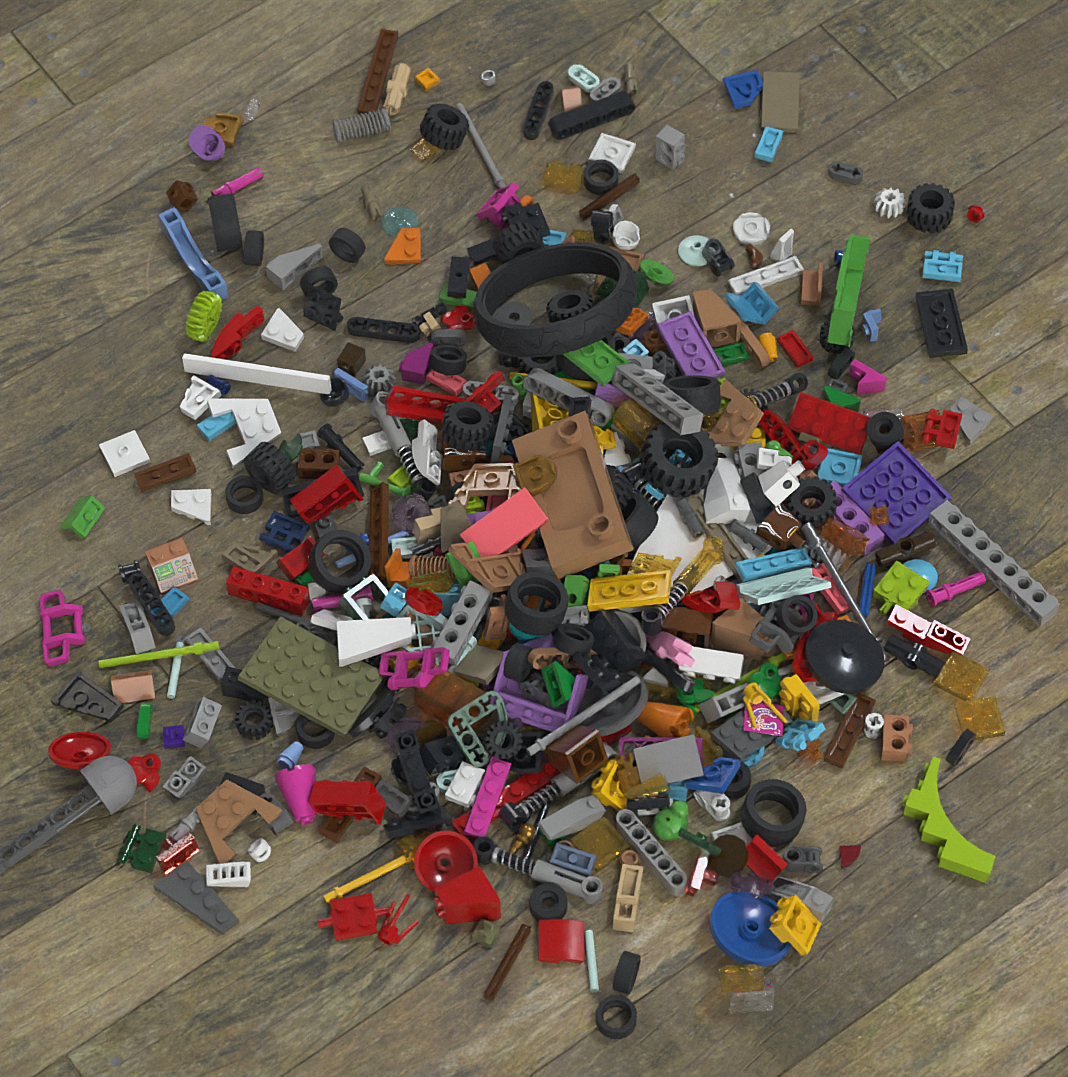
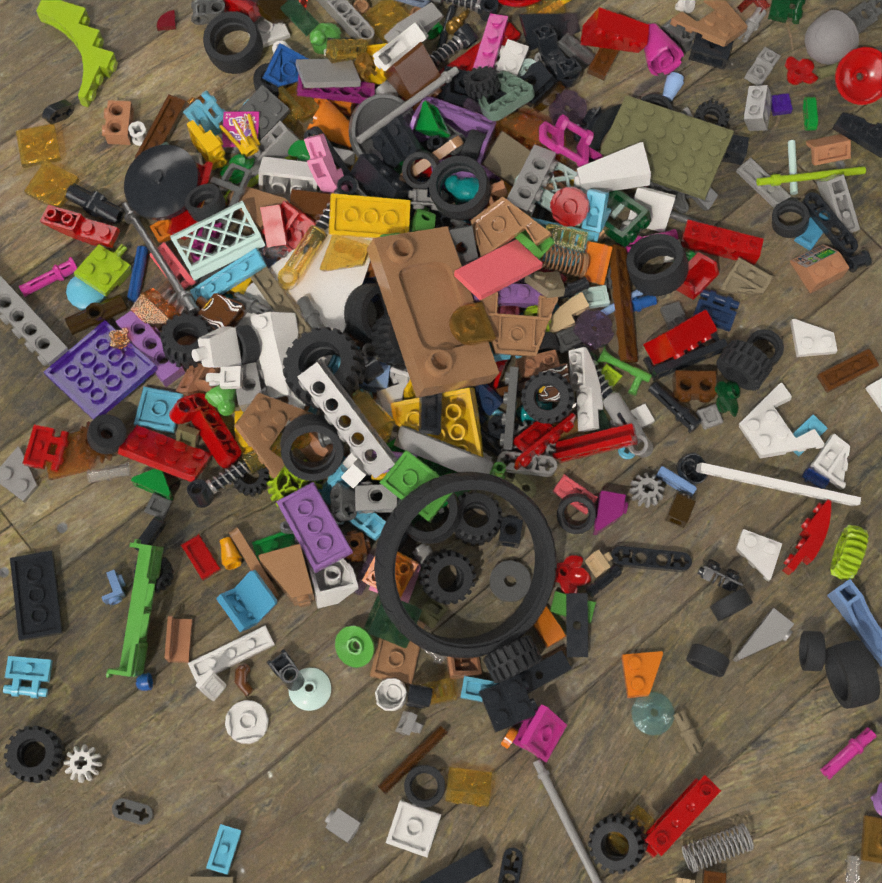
camera: 170 degrees right, 15 degrees up
(196, 597) = (790, 206): none -> black tyre
(398, 146) = (680, 815): none -> red fence
(449, 337) = (578, 547): dark grey beam -> none
(597, 766) = (400, 46): none -> white arch
(869, 379) = (120, 513): dark pink slope -> none

